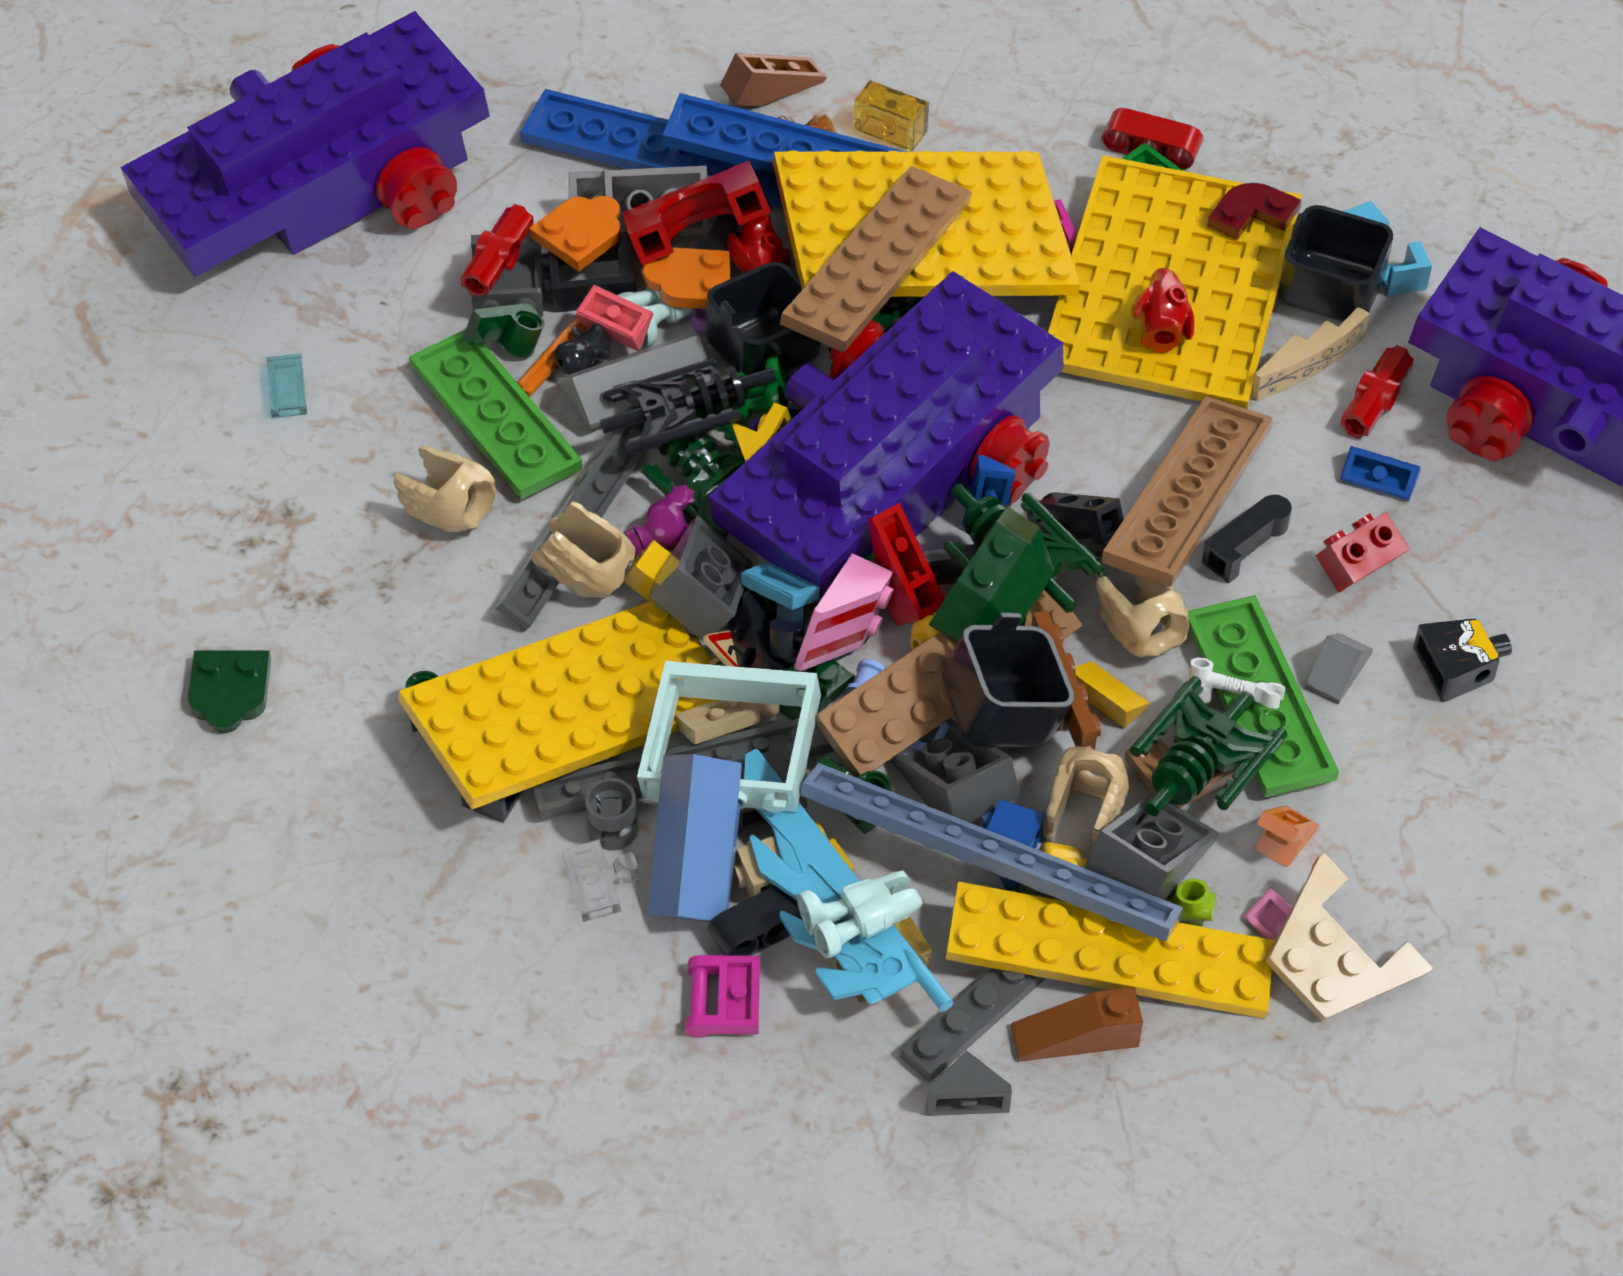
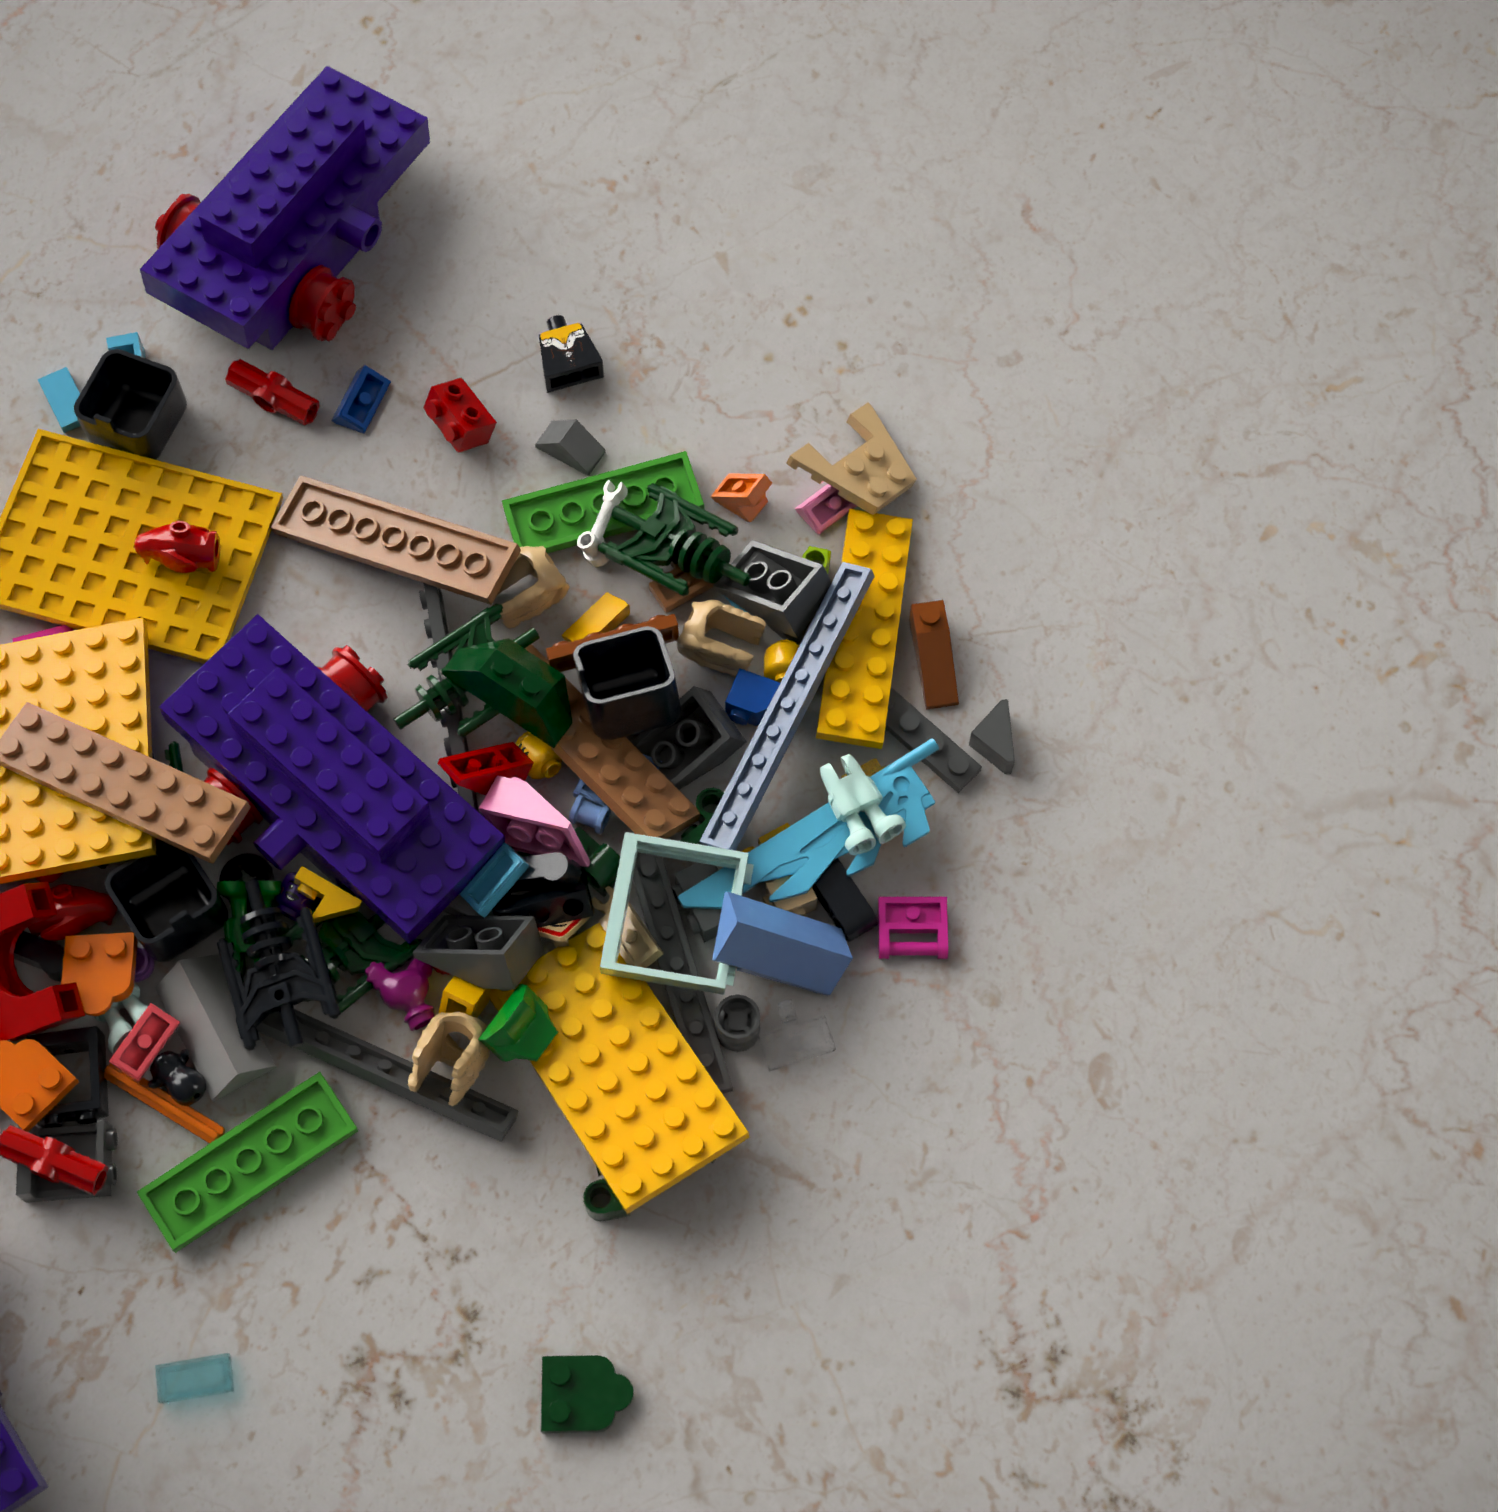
camera: 90 degrees left, 15 degrees up
(457, 483) = (386, 1178): tan piece -> none
(513, 326) = (147, 1144): dark green plate -> none
(610, 607) = (520, 1027): none -> green slope
(992, 479) = (386, 702): blue slope -> none
(1084, 514) = (417, 630): black leg -> none
(1245, 534) = (426, 500): black leg -> none
(1253, 201) = (48, 471): dark red plate -> none
(1305, 358) = (227, 444): tan slope -> none

